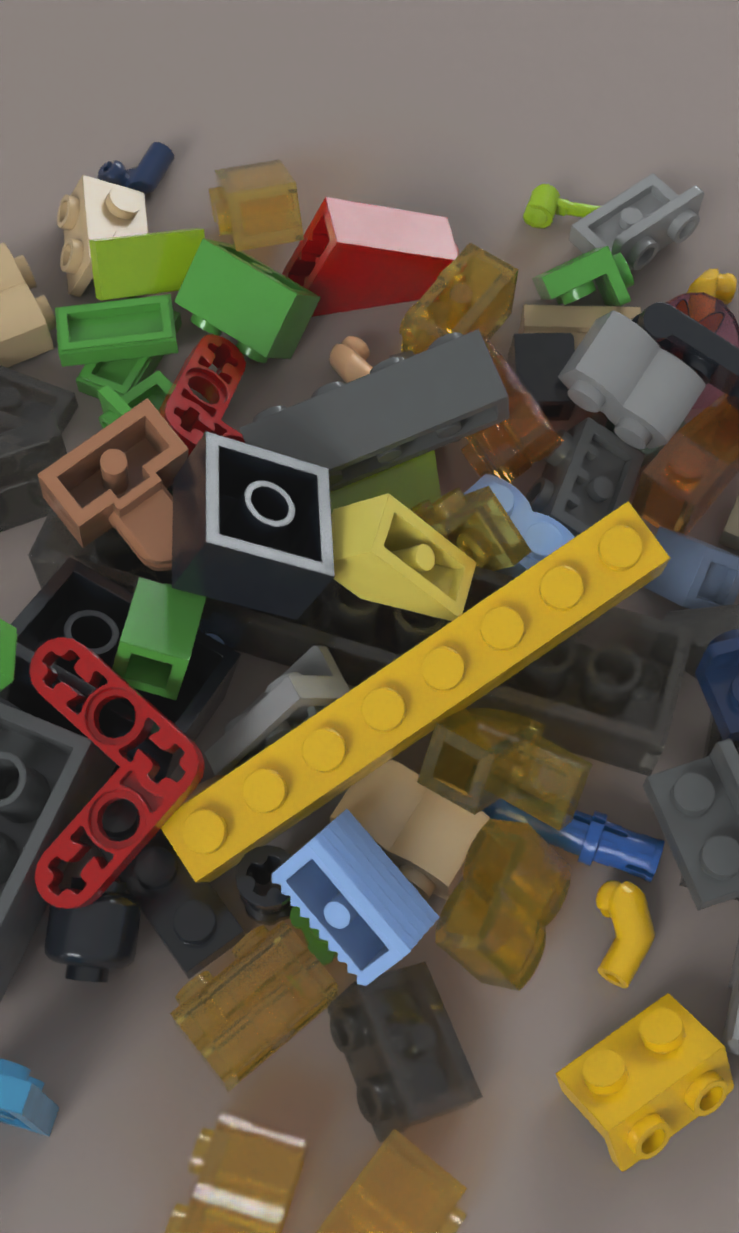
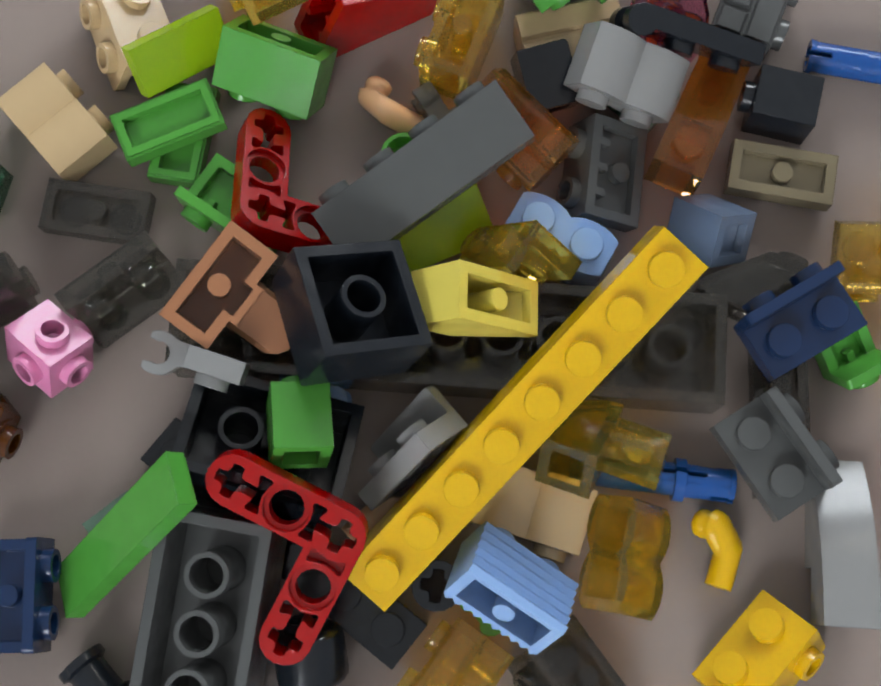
camera: 10 degrees left, 15 degrees up
(77, 551) = (211, 368): none -> light grey plate

